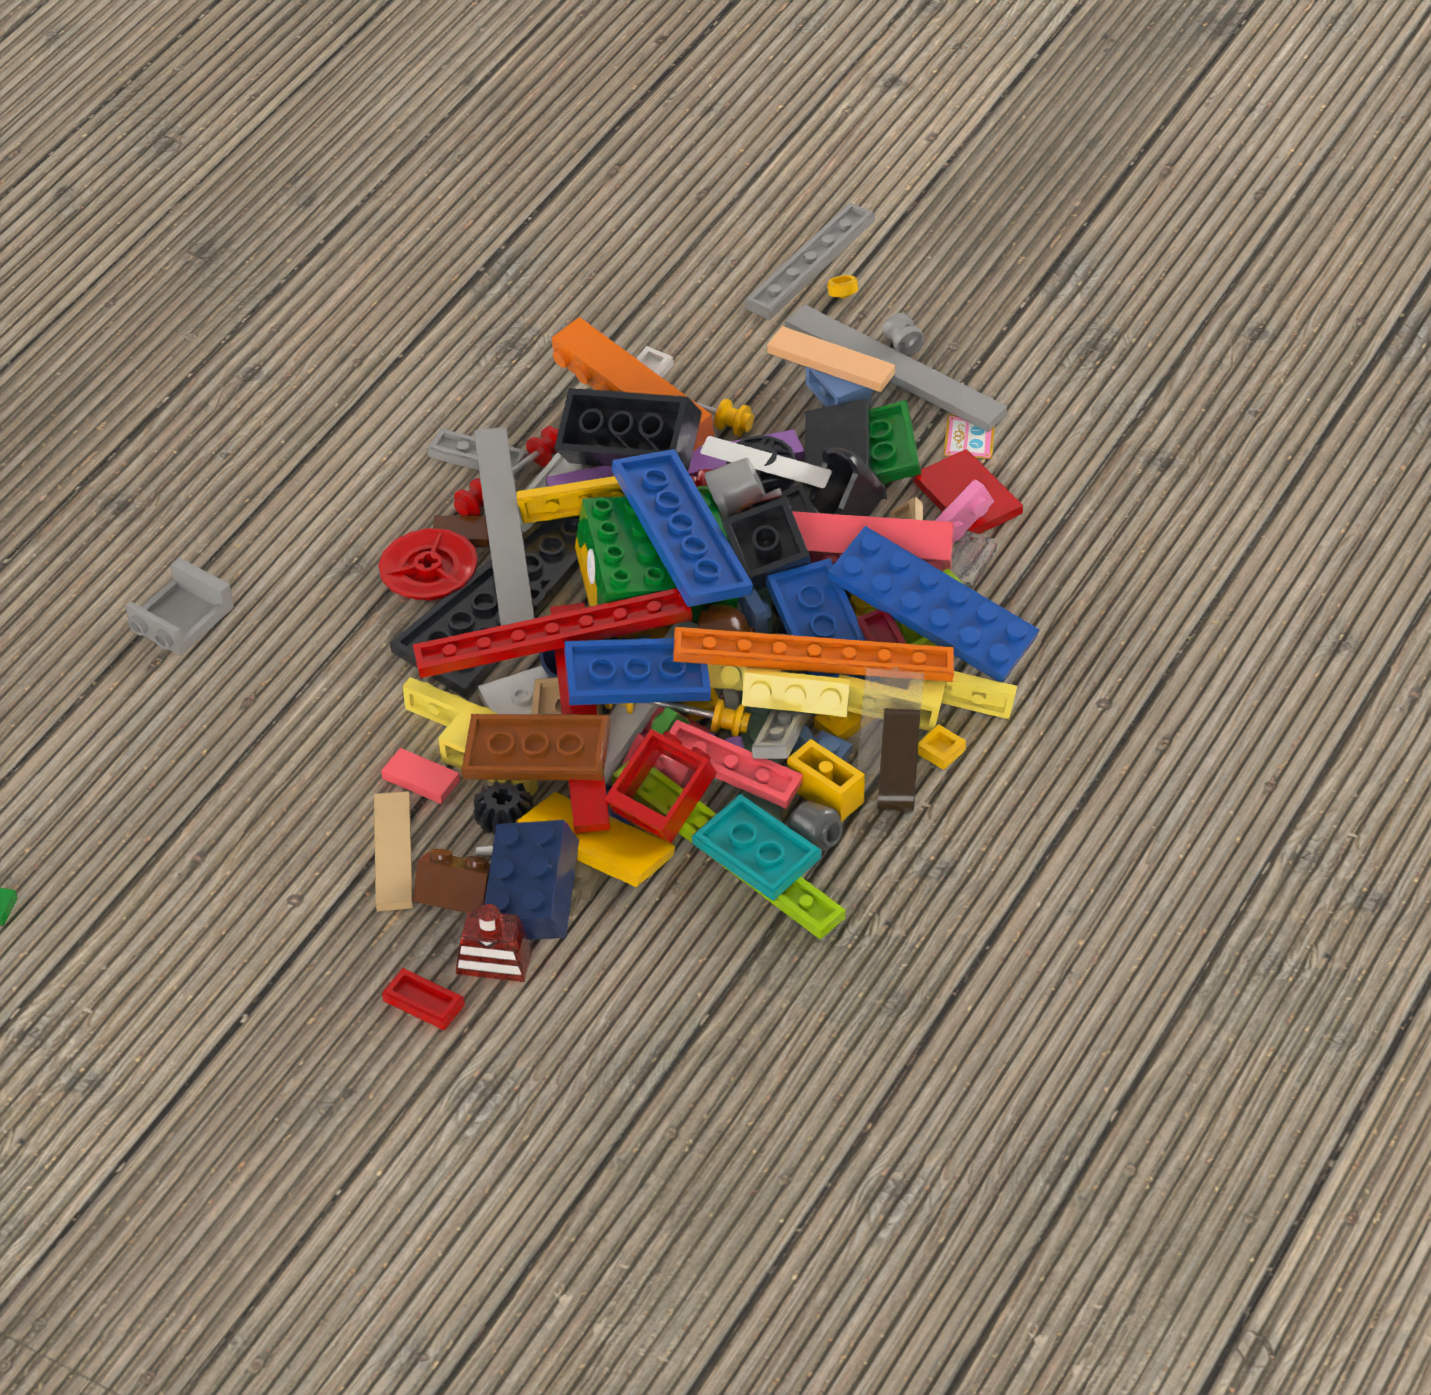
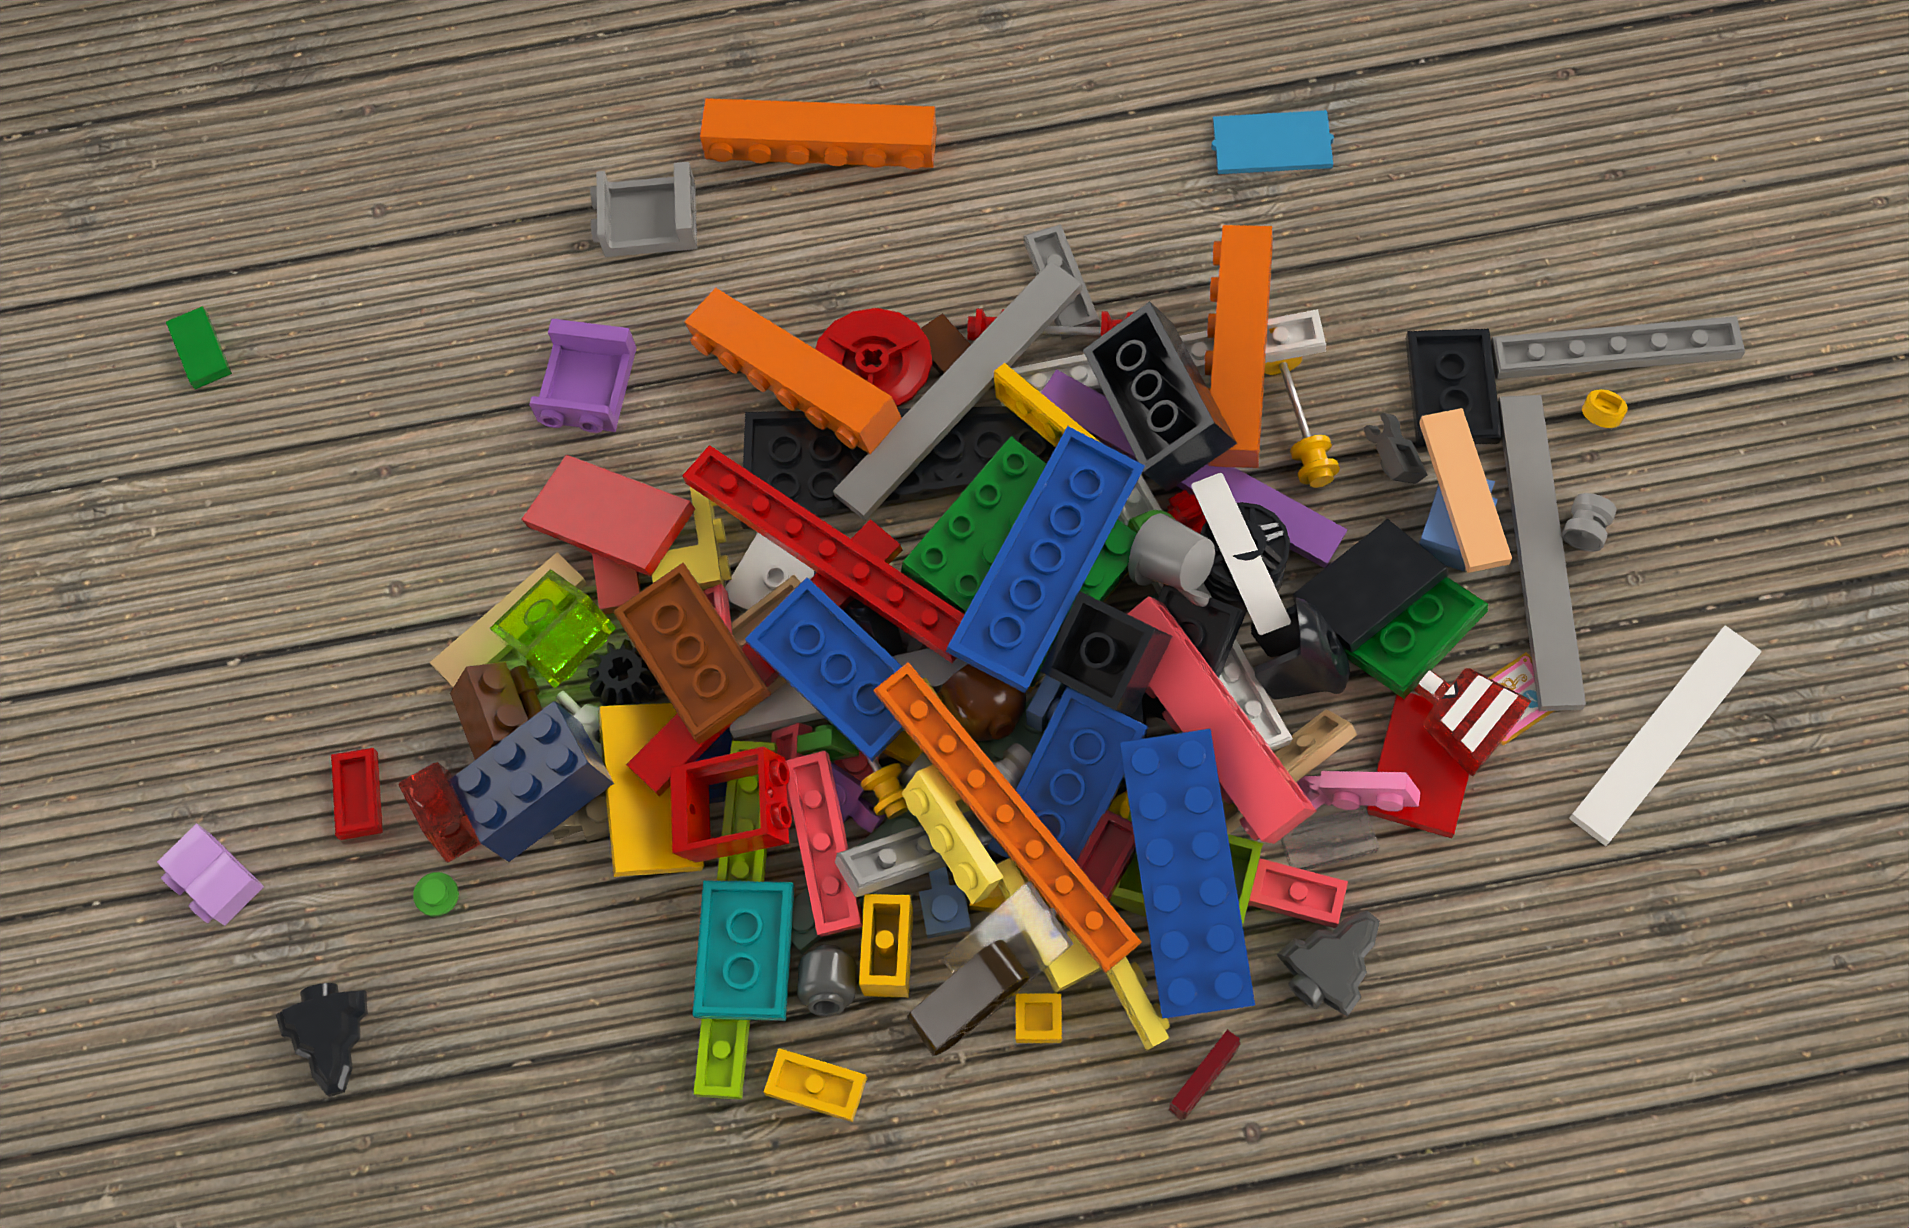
camera: 55 degrees right, 20 degrees up
(232, 493) = (819, 133): none -> orange brick
(260, 708) = (585, 376): none -> medium lavender panel
(382, 746) = (608, 514): none -> tile
(393, 595) = (793, 371): none -> orange brick
(397, 1102) = (209, 876): none -> lavender brick
(435, 810) = (553, 628): none -> clear neon green brick
(501, 310) = (1272, 142): none -> dark azure piece
(544, 993) = (436, 894): none -> bright green plate
(577, 1099) = (325, 1031): none -> black rock
(744, 335) = (1454, 373): none -> black tile
(774, 384) = (1397, 454): none -> dark grey plate
(874, 873) = (815, 1085): none -> yellow plate
(965, 447) = (1470, 715): none -> clear red torso
(997, 584) = (1298, 893): none -> coral plate
(1045, 603) = (1331, 963): none -> dark grey rock
(1052, 694) = (1205, 1075): none -> dark red tile
(1058, 391) = (1664, 735): none -> white tile

